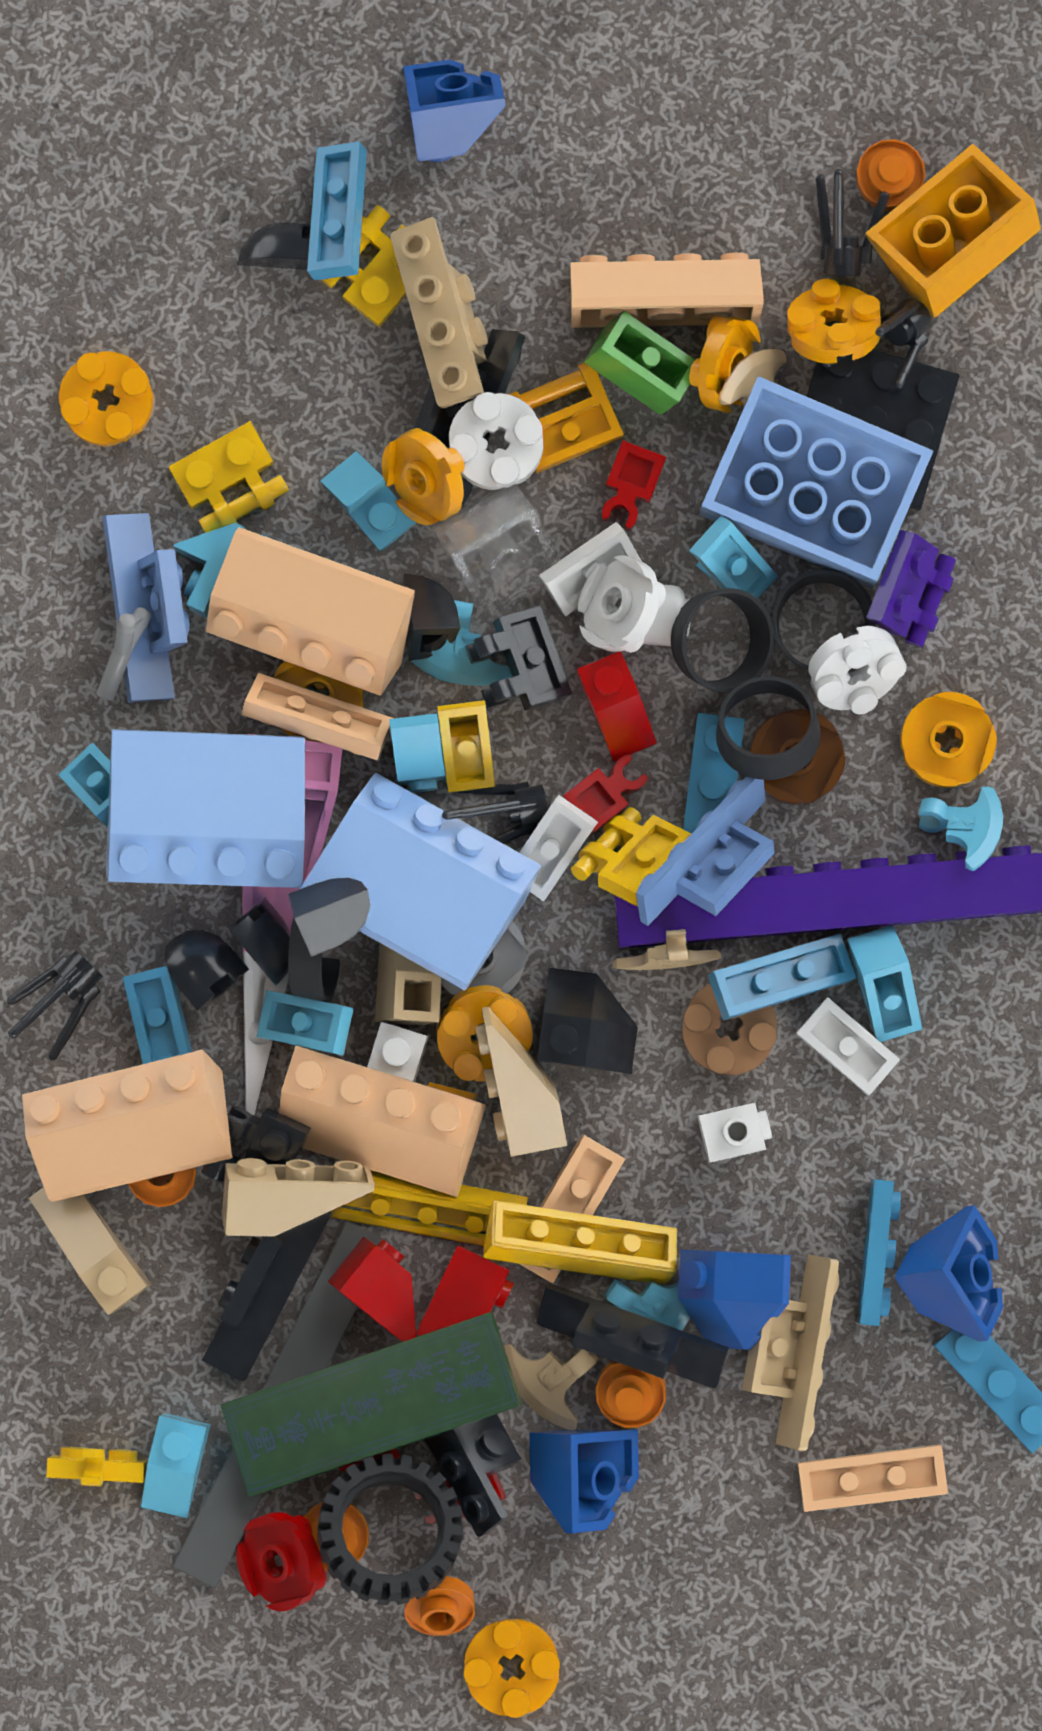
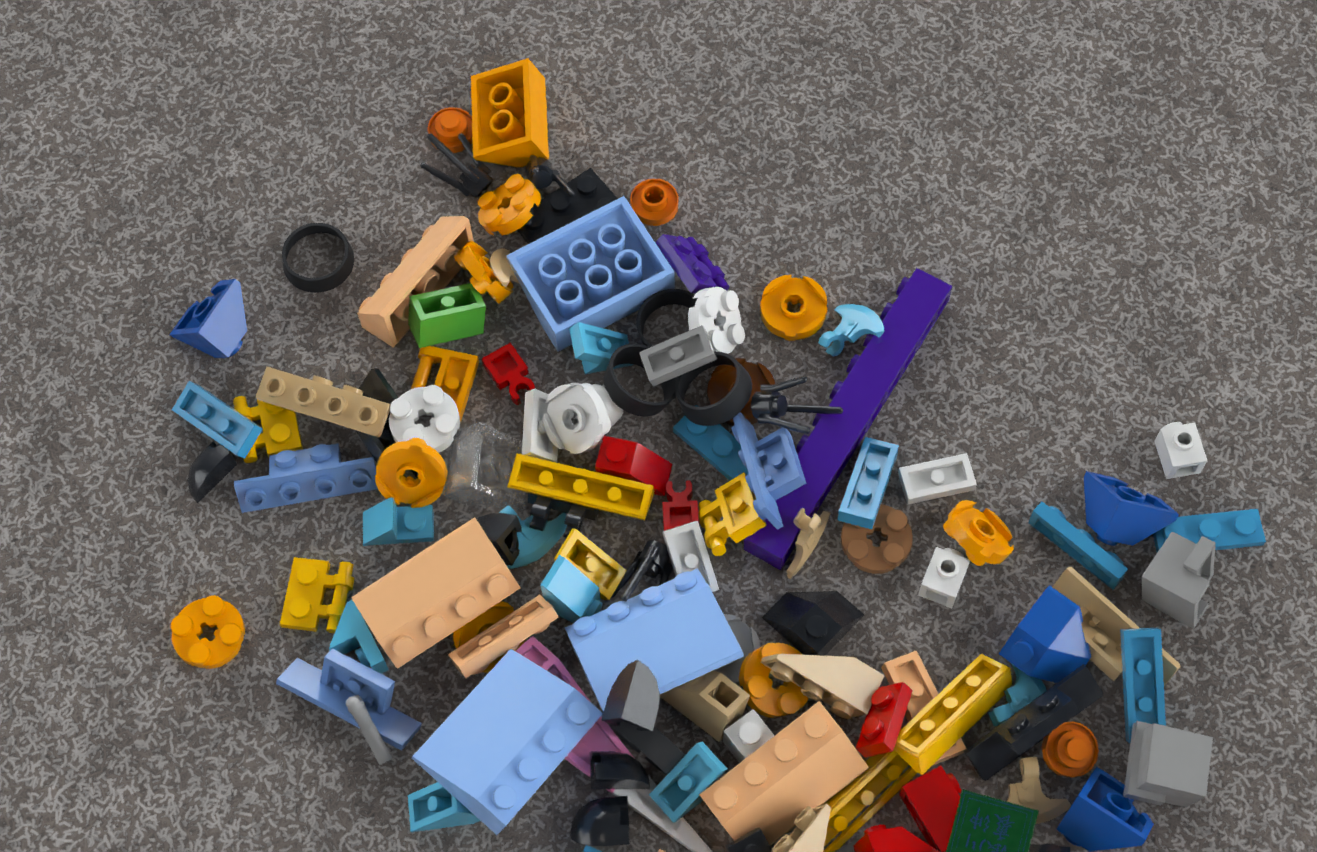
camera: 55 degrees left, 20 degrees down
(348, 357) = (305, 477): none -> medium blue bracket
(515, 1179) = (884, 719): none -> red plate
(546, 669) = (581, 486): none -> yellow slope
(610, 197) = (326, 282): none -> black tyre
(679, 1502) = (1167, 765): none -> light grey plate
(754, 1424) = (1142, 677): none -> dark azure plate
(772, 663) = (677, 355): none -> light grey plate
(788, 1146) = (979, 533): none -> light orange plate
(792, 806) = (769, 405): none -> black plant
(872, 1478) = (1221, 644): light nougat plate -> none
(885, 983) = (913, 429): medium azure slope -> none
(907, 1387) = (1180, 578): none -> light grey plate
(965, 484) = (654, 201): none -> orange plate

